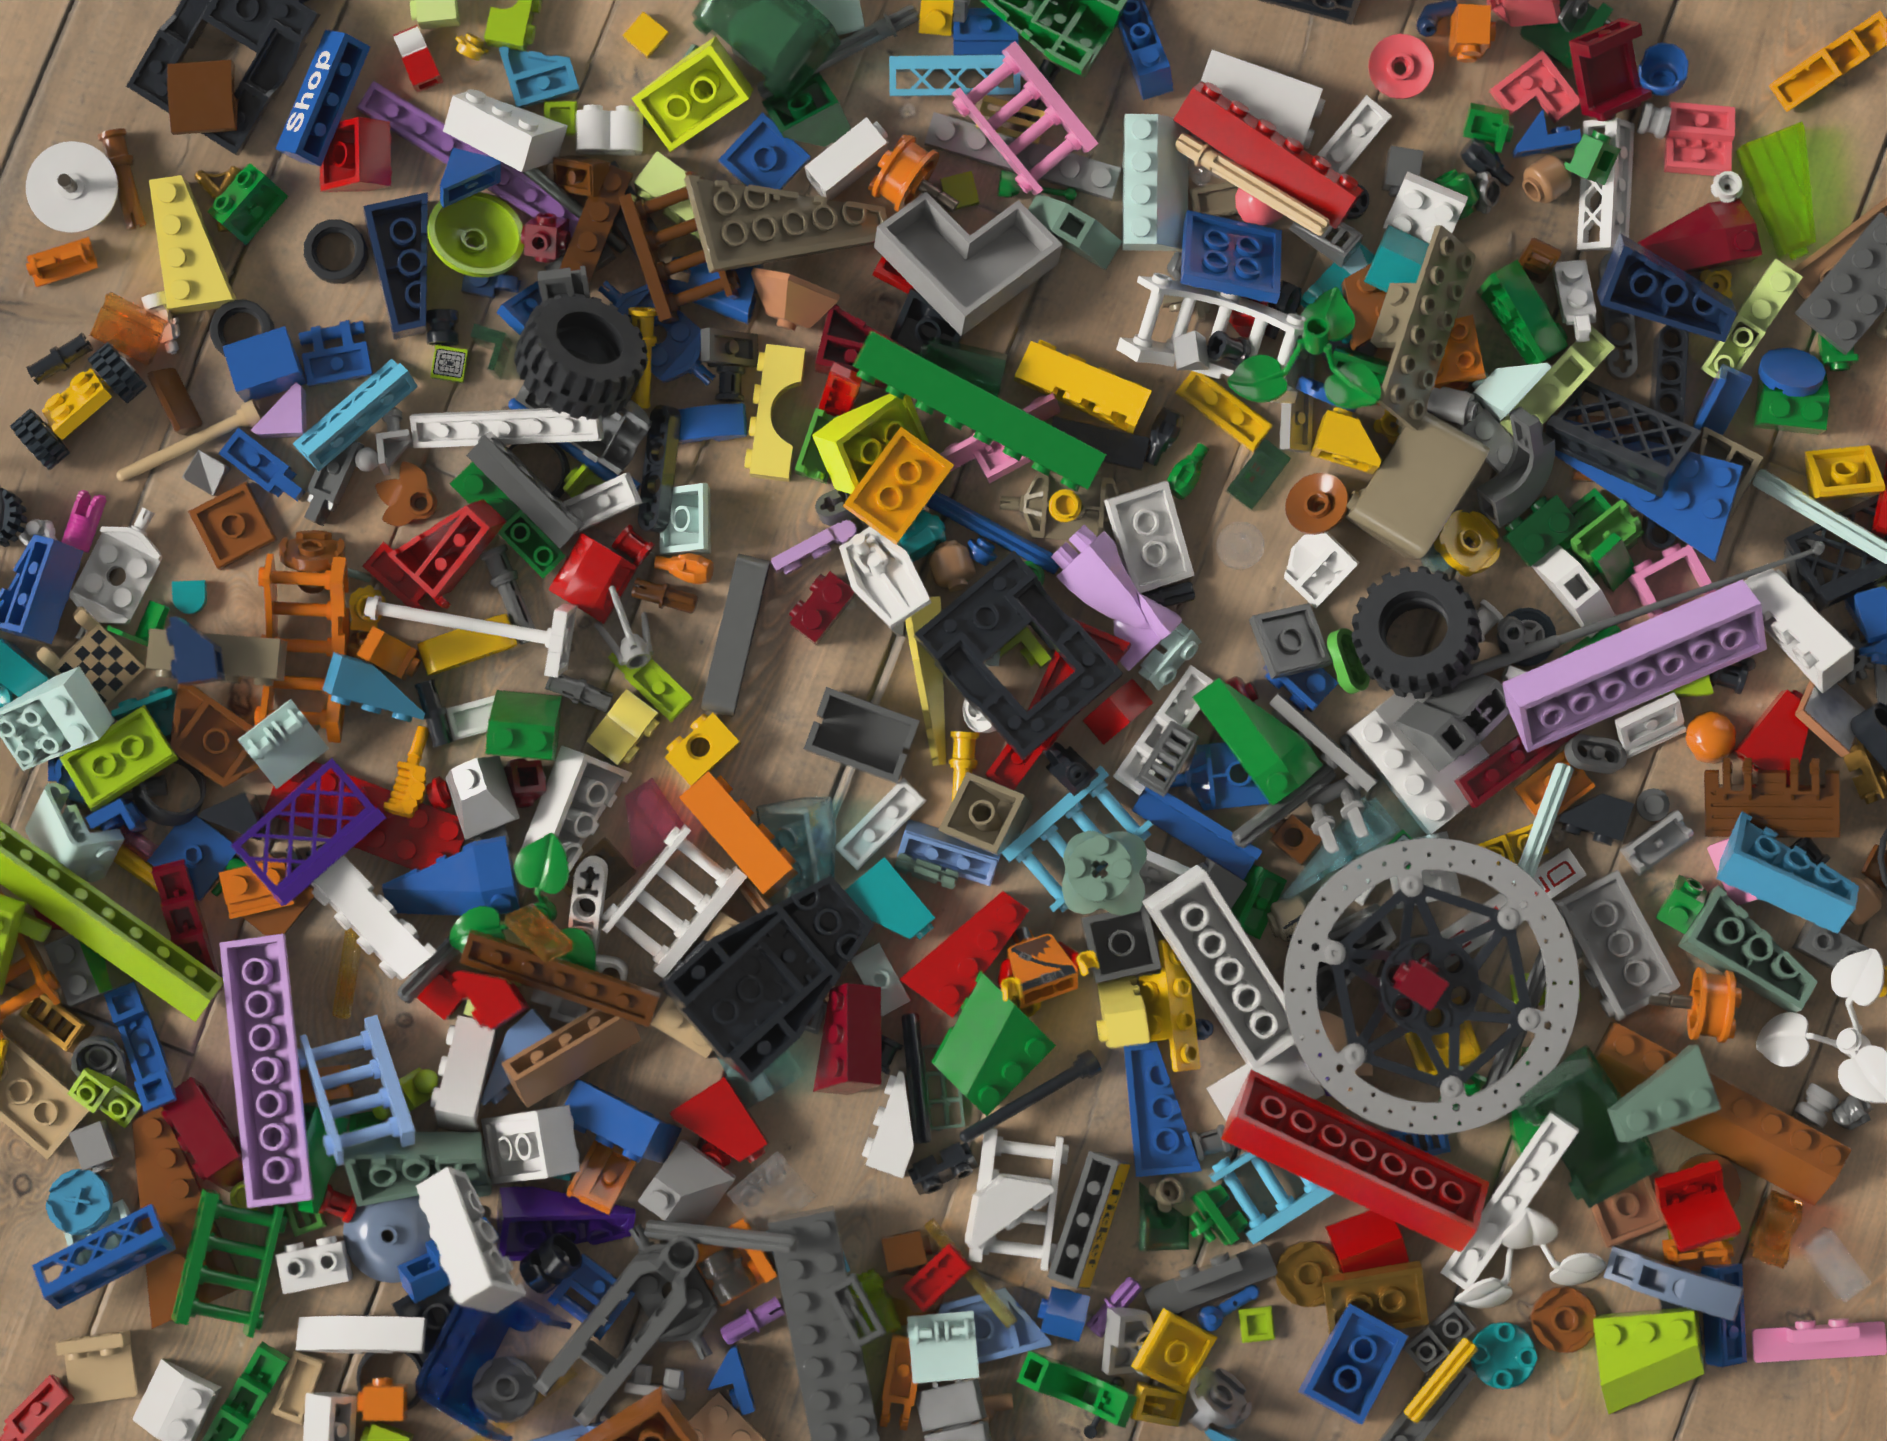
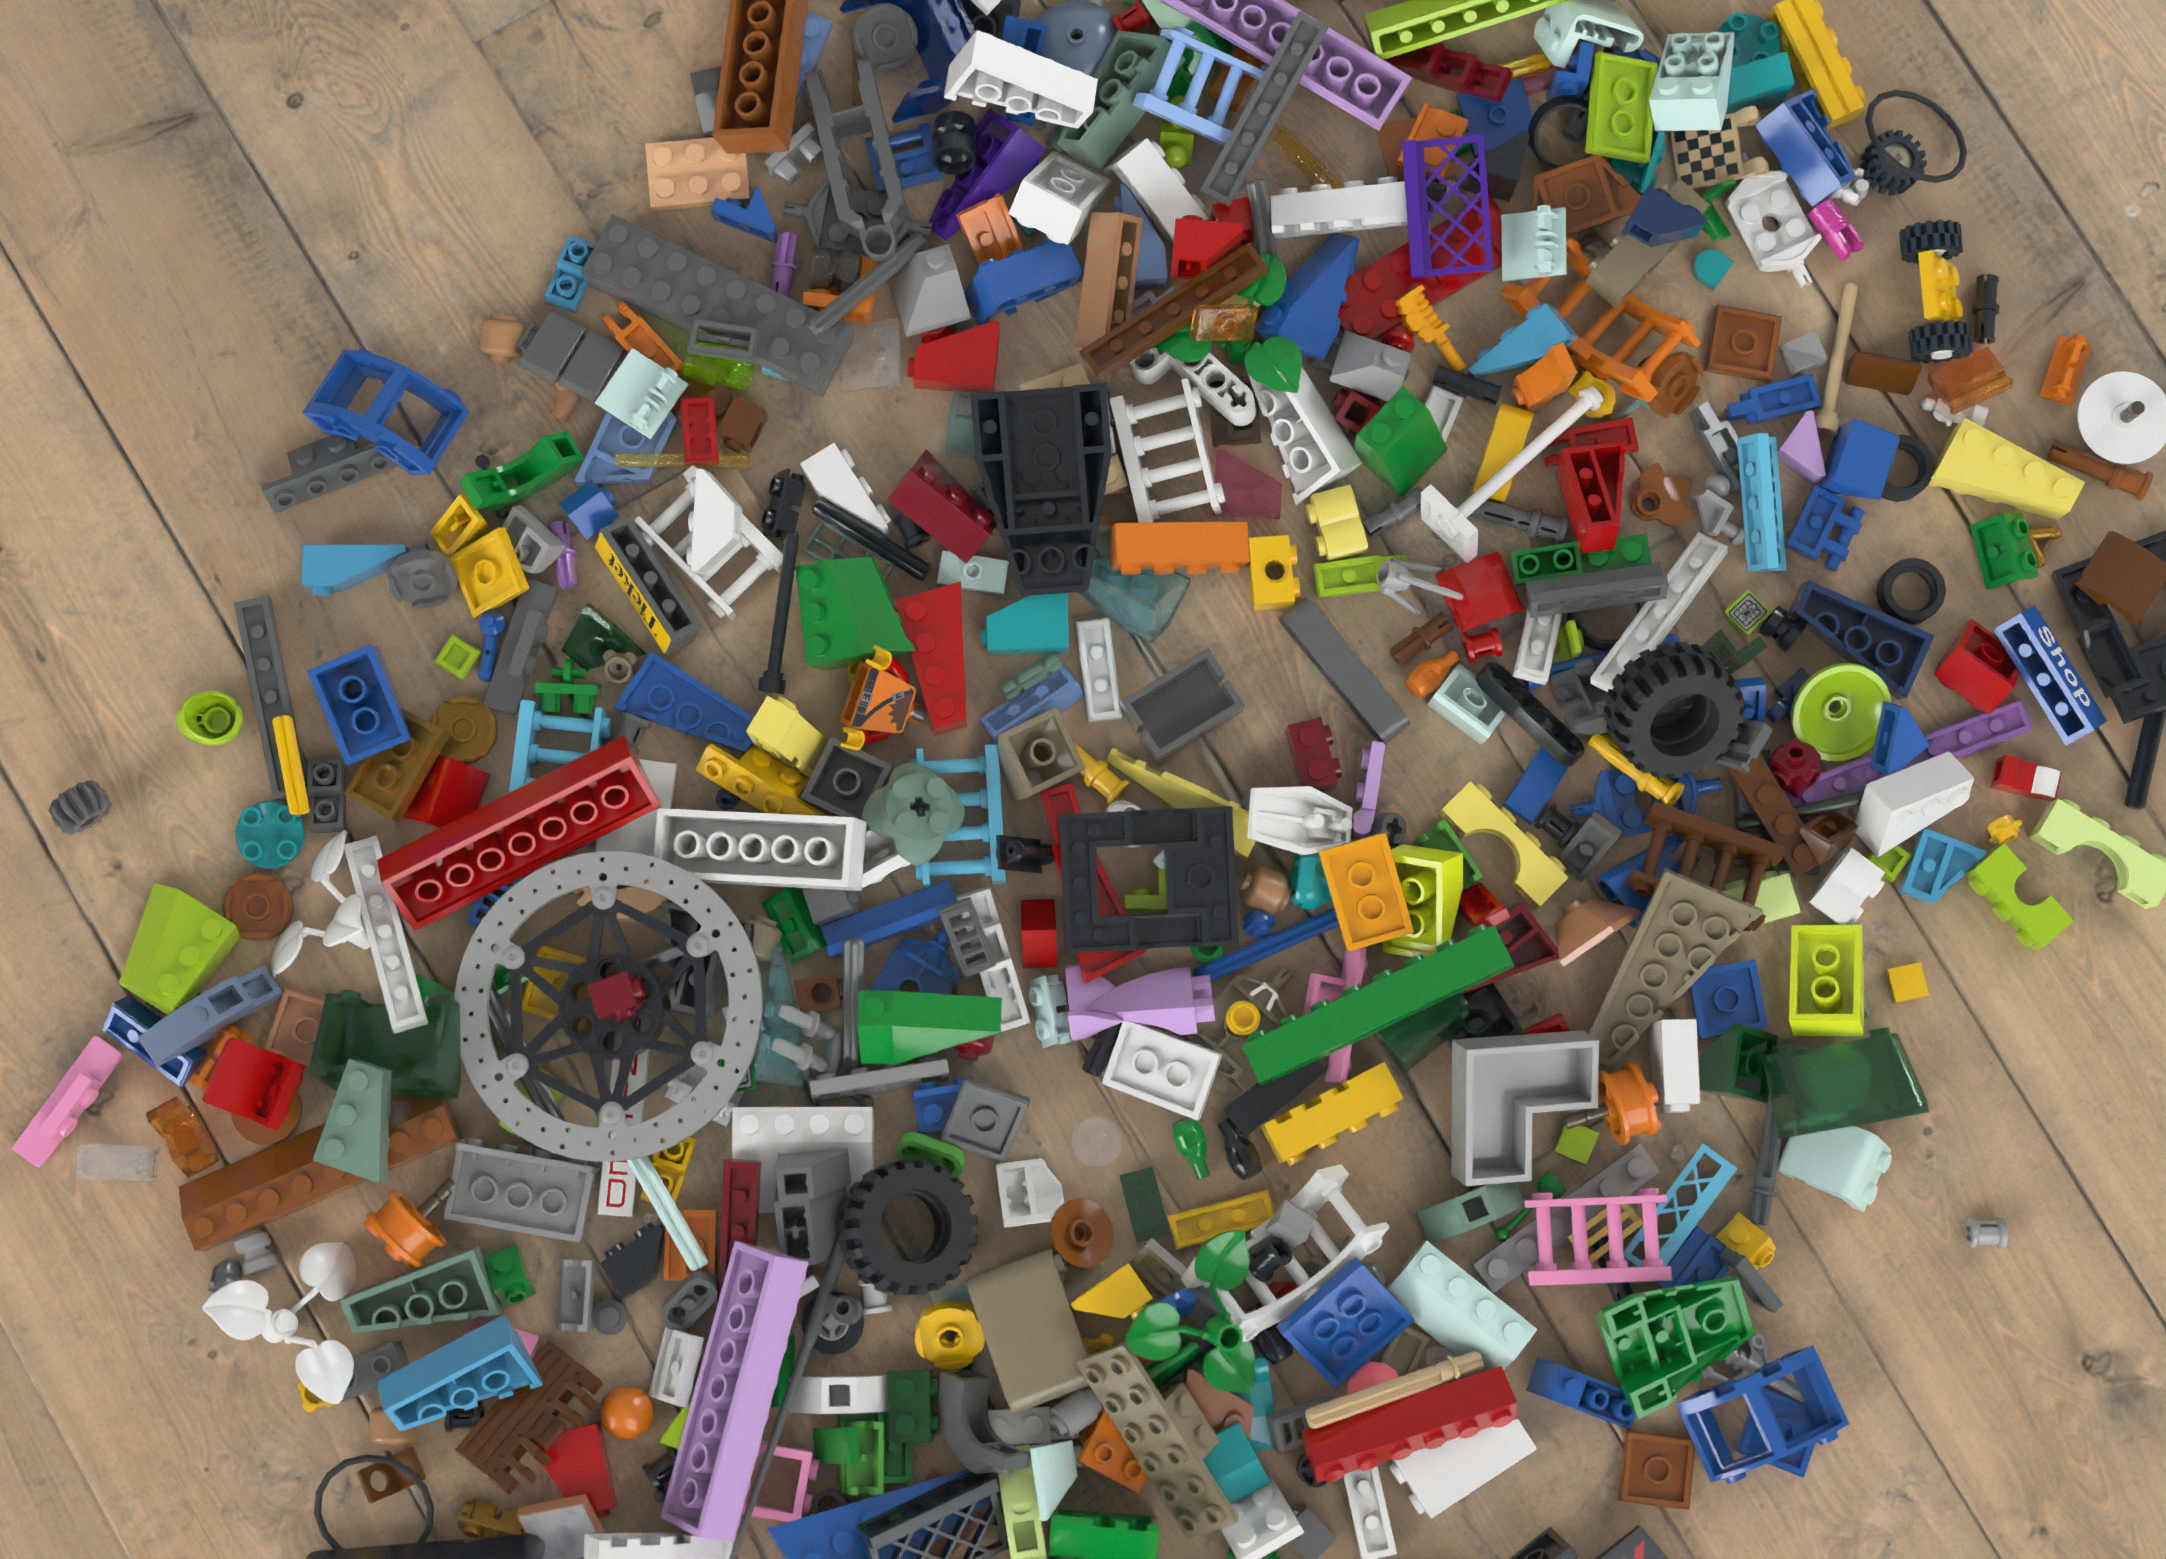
camera: 125 degrees right, 5 degrees down
(339, 1035) = (1264, 109): none -> dark grey plate

